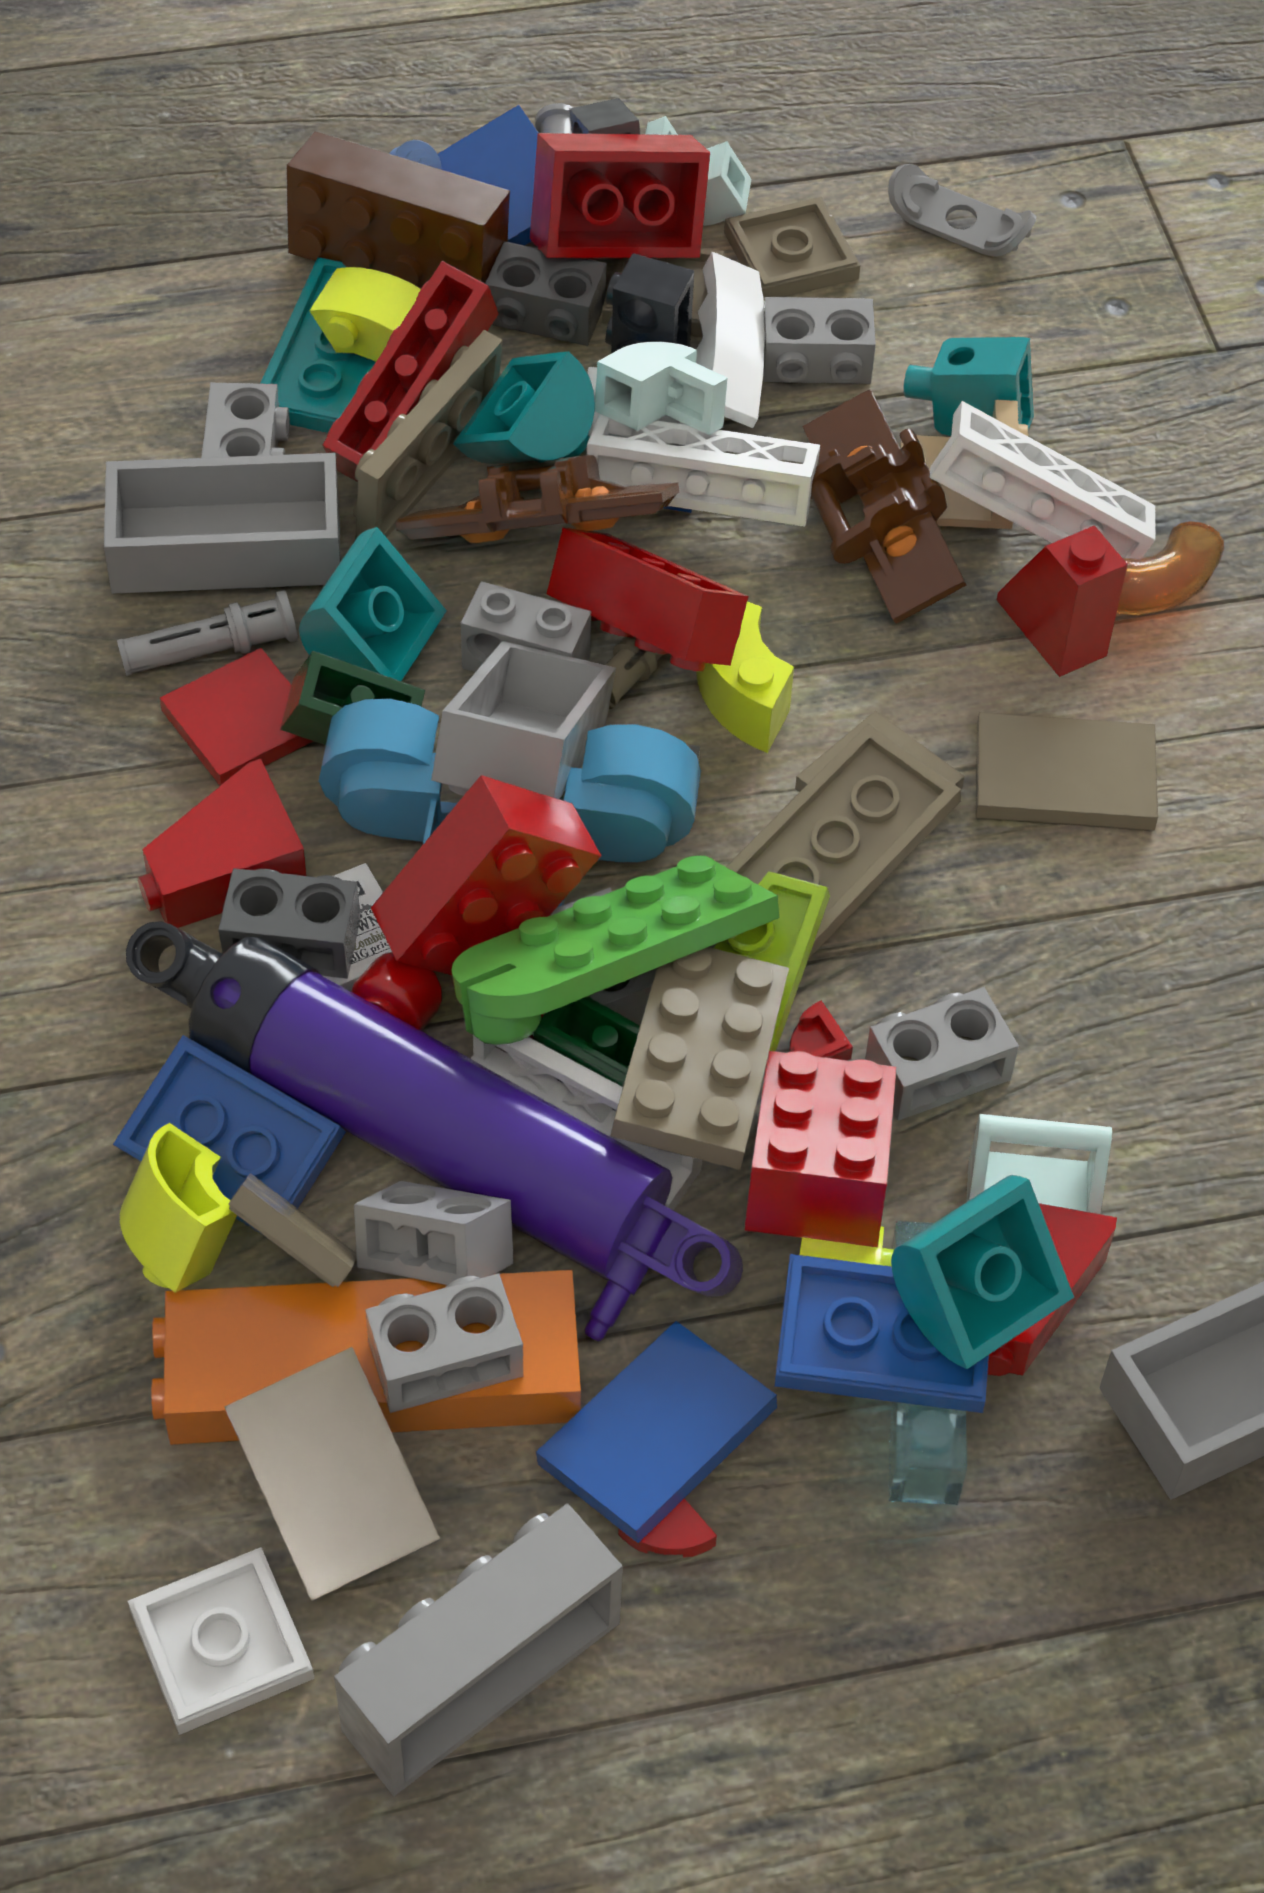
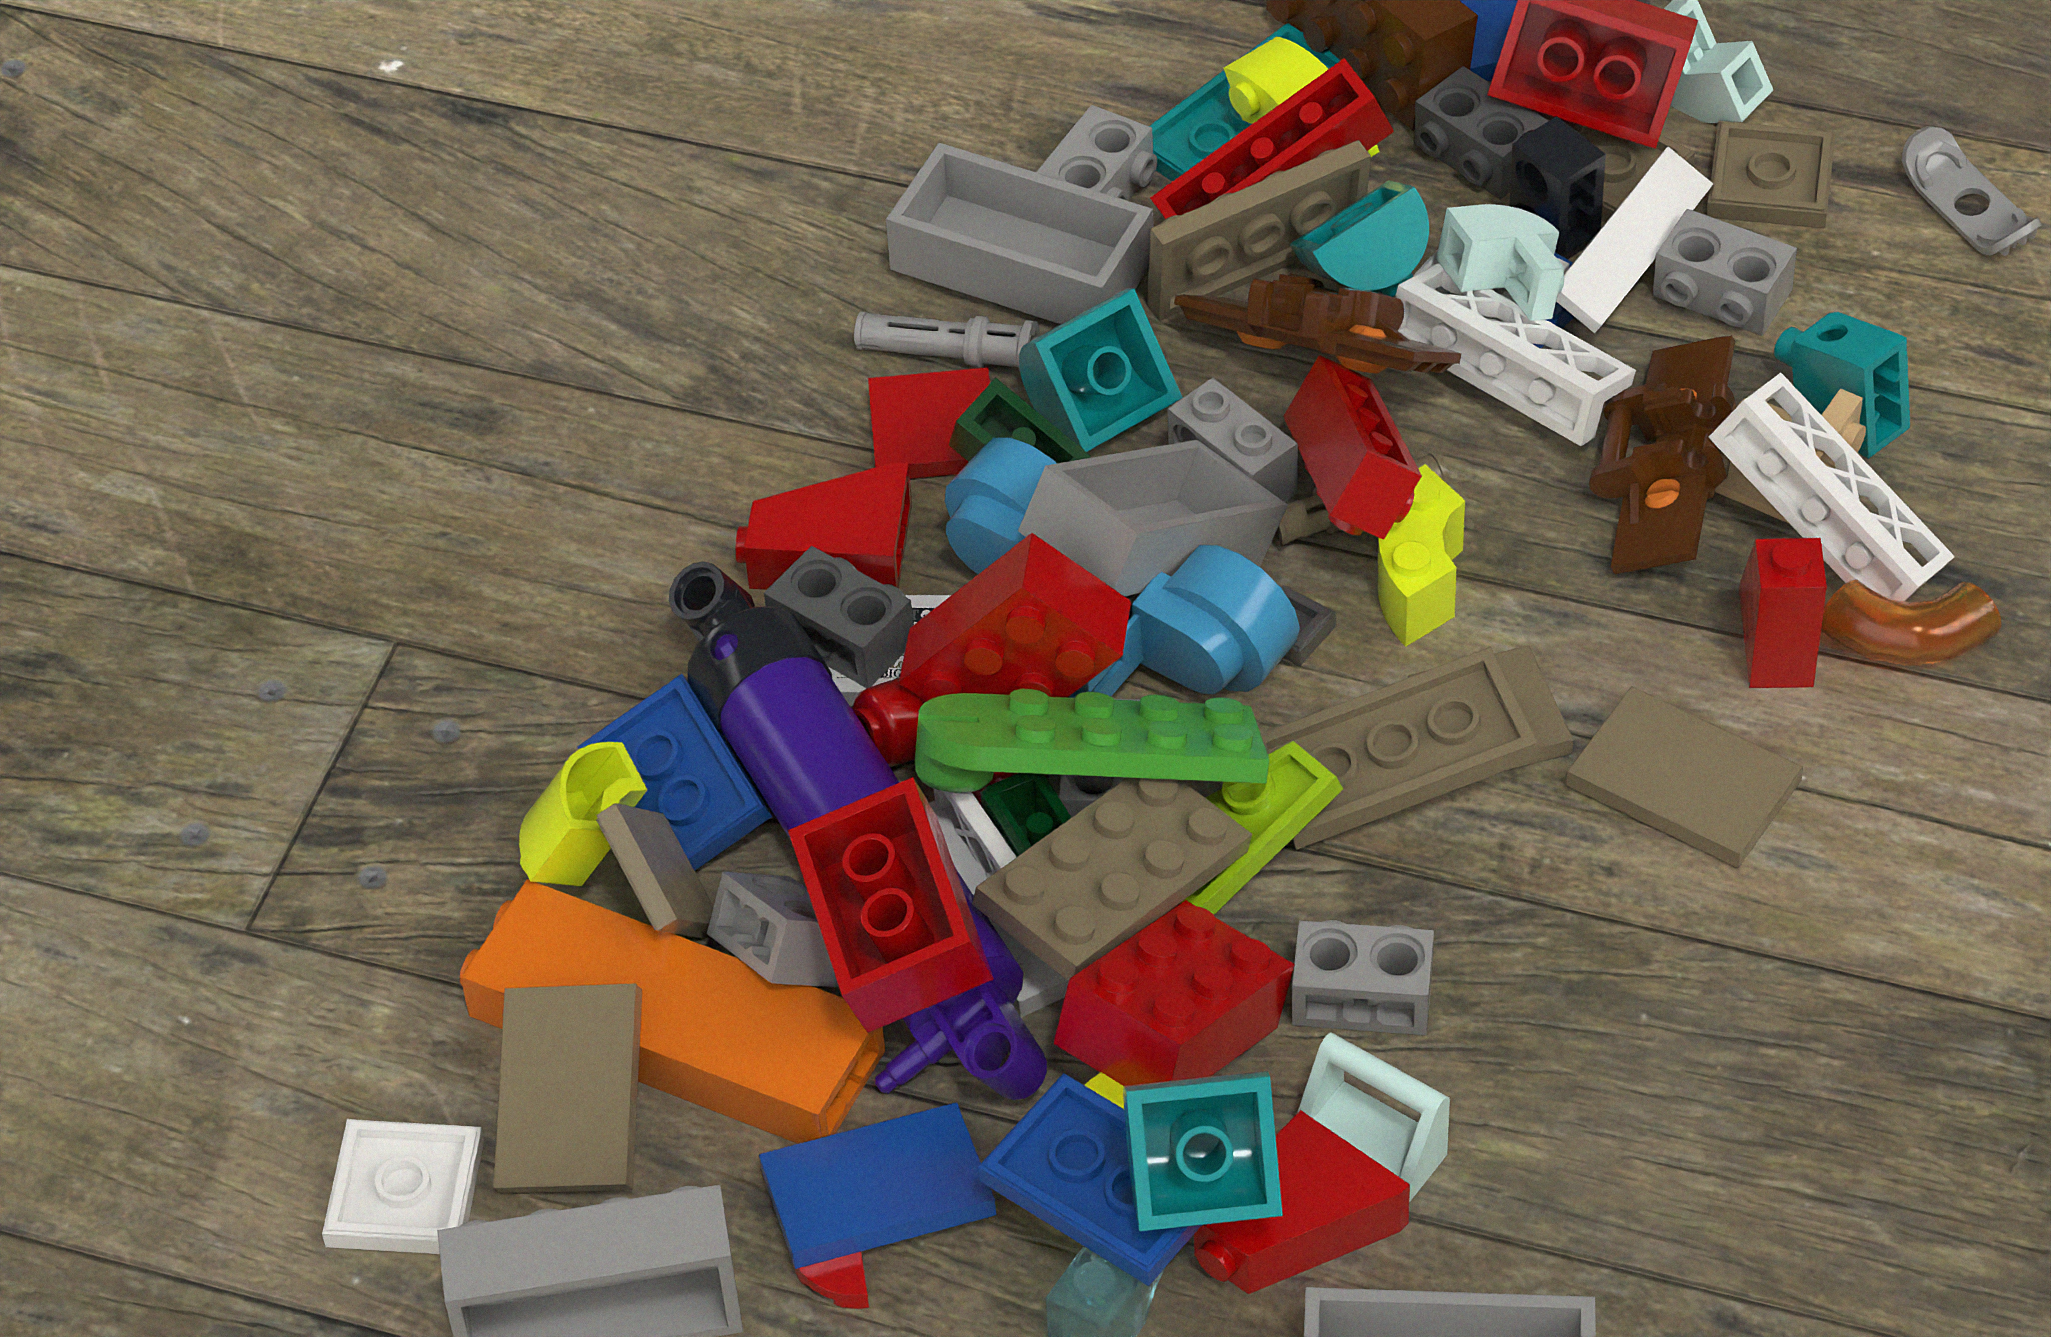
camera: 35 degrees right, 5 degrees down
(451, 1357) = (718, 1023): light grey brick -> none
(560, 1169) = (890, 905): none -> red brick
(820, 1035) = (1264, 918): red tile -> none

